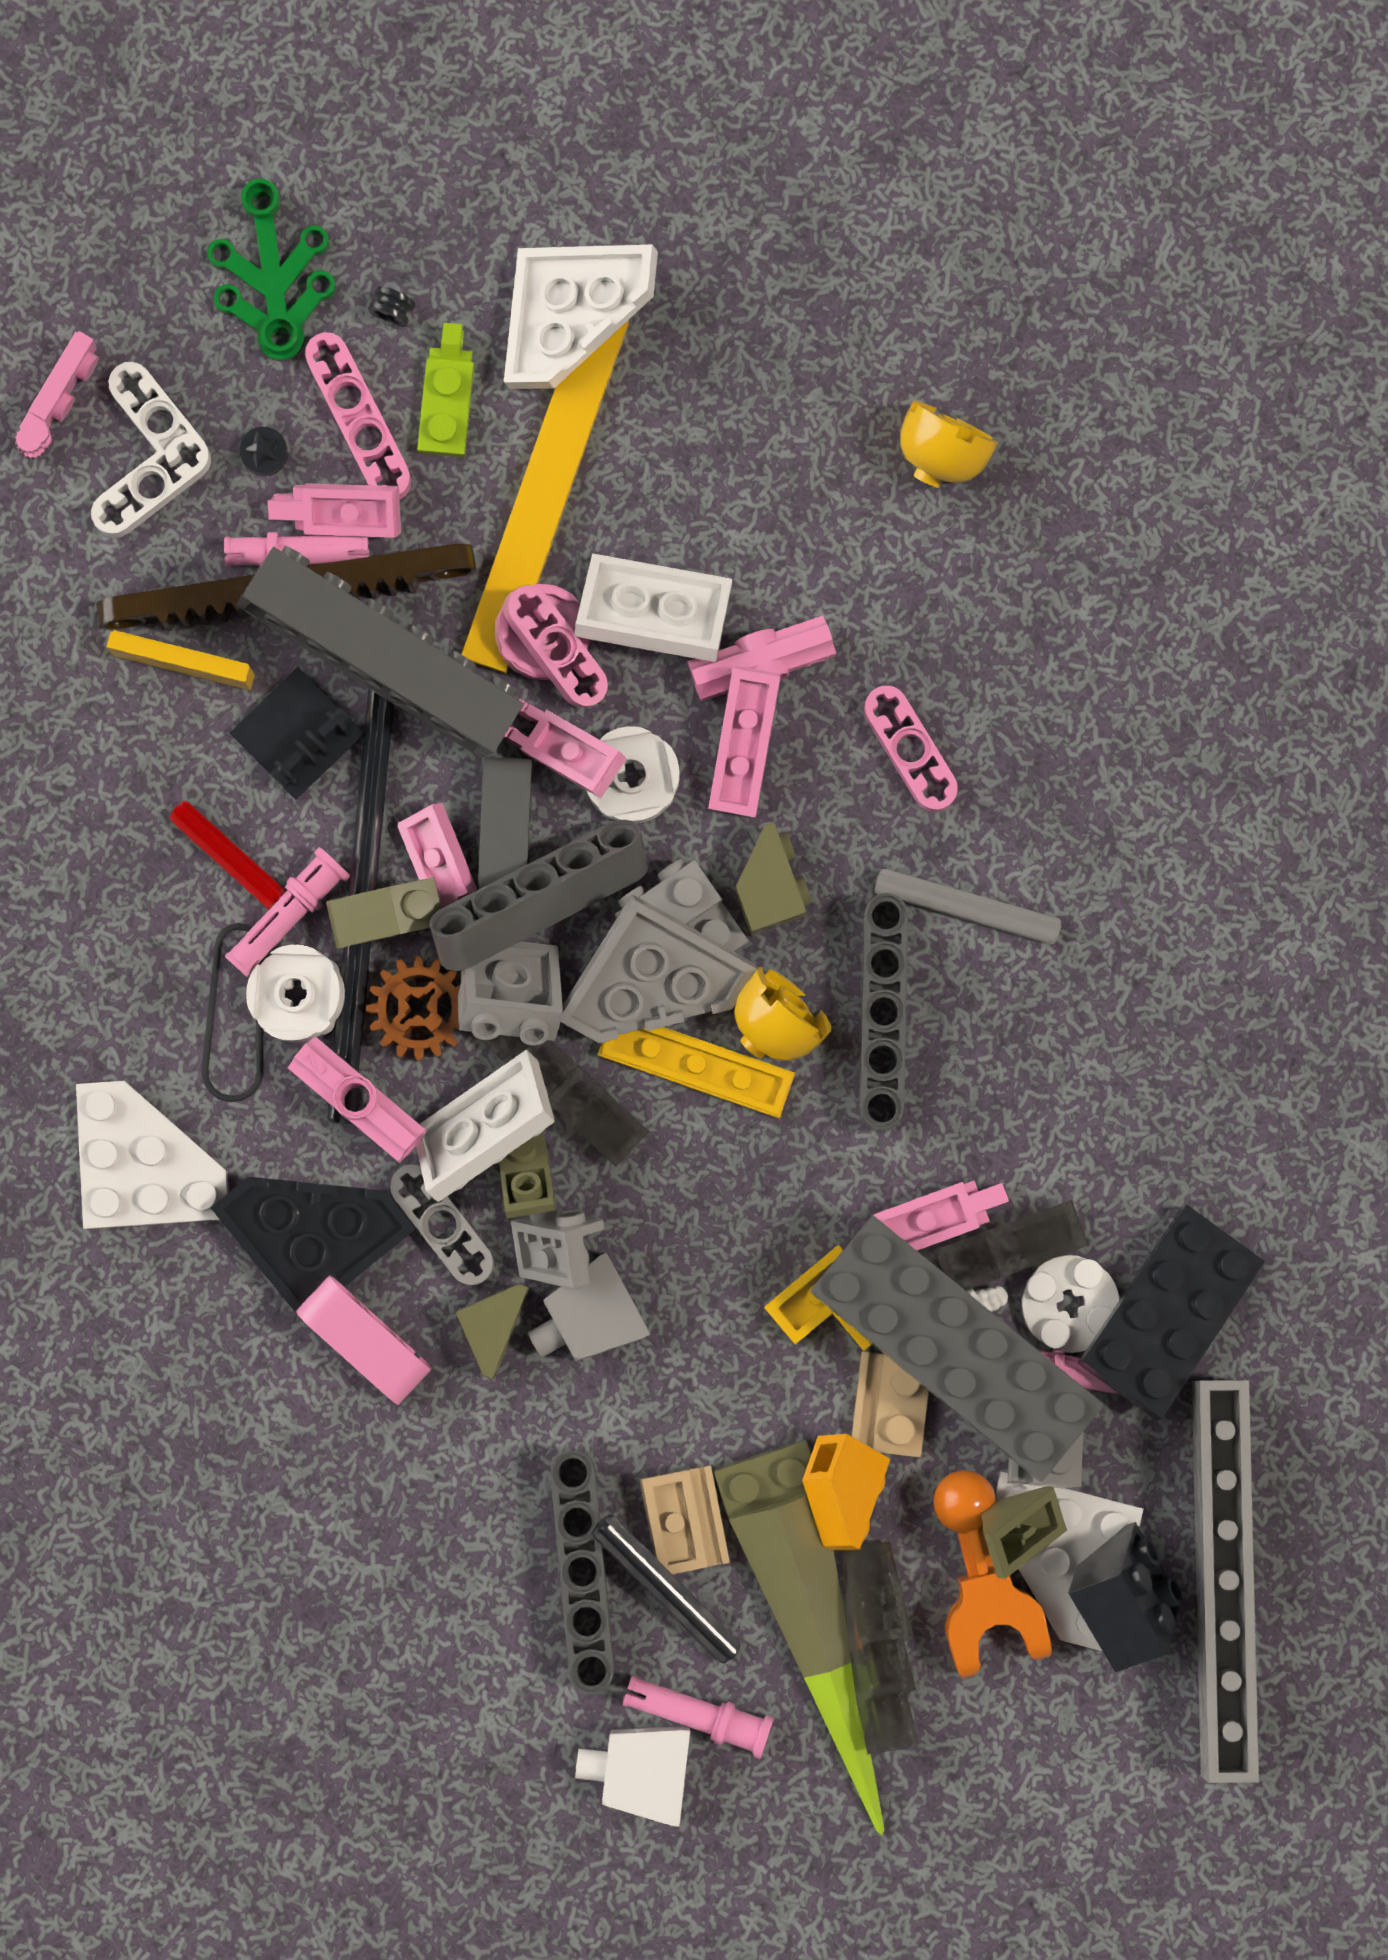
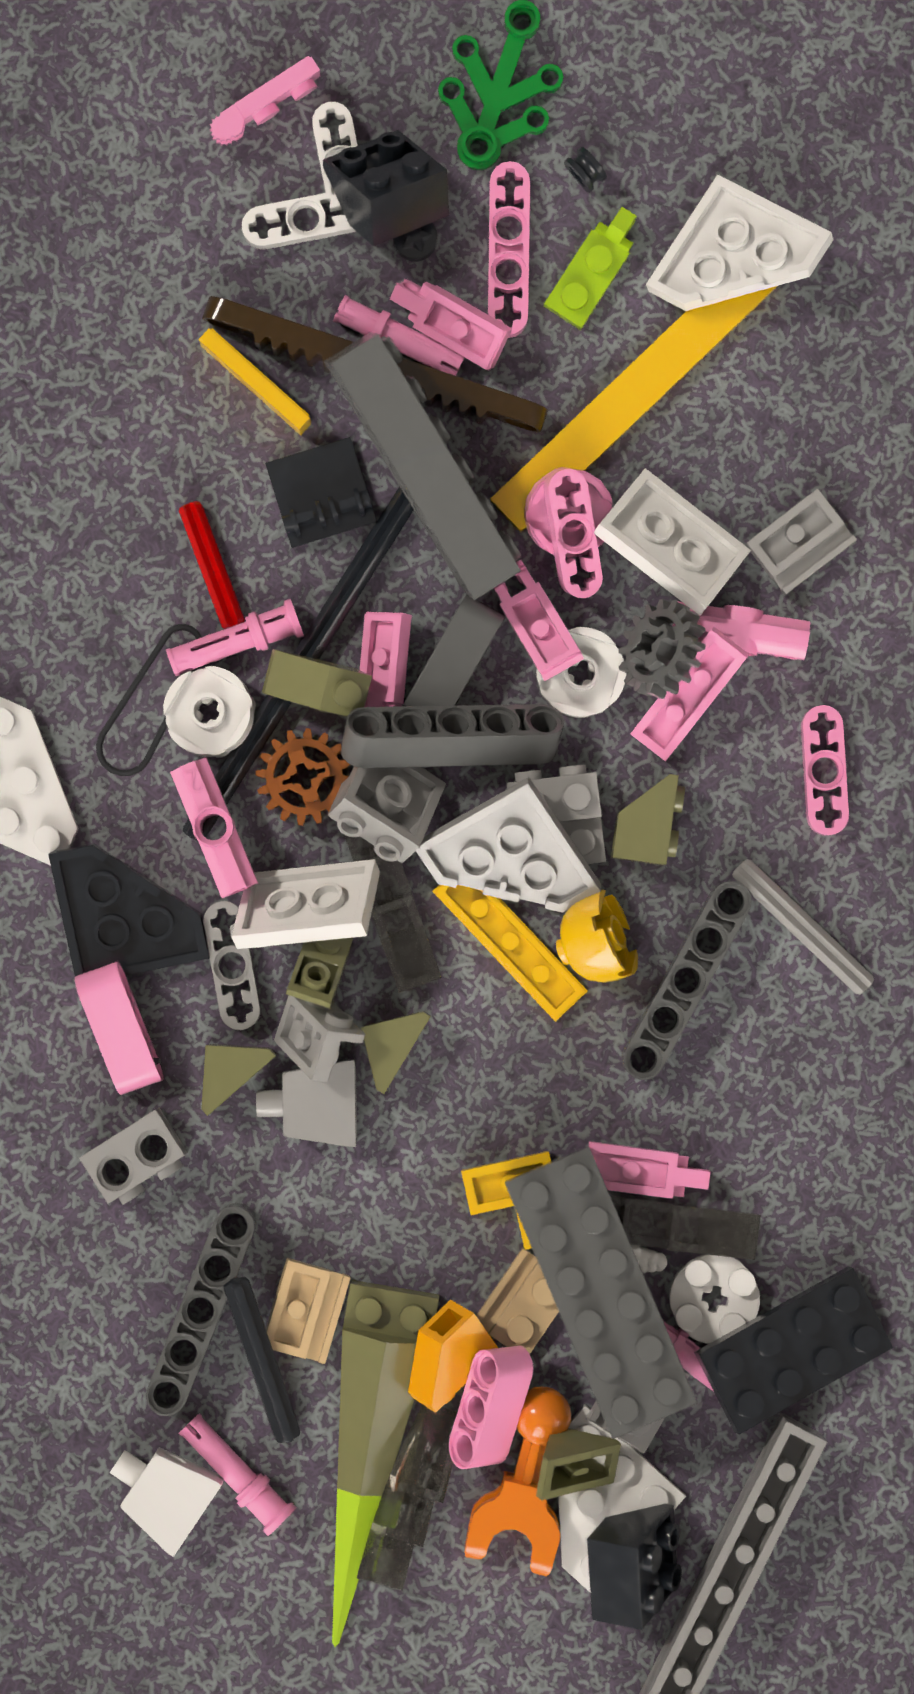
camera: 25 degrees right, 5 degrees up
(214, 415) = (388, 187): none -> black slope
(431, 1450) = (129, 1147): none -> light grey brick
(632, 1220) = (390, 1043): none -> olive slope
(696, 710) = (662, 649): none -> dark grey gear
(775, 547) = (800, 542): none -> light grey plate
(910, 1517) = (490, 1407): none -> bright pink beam

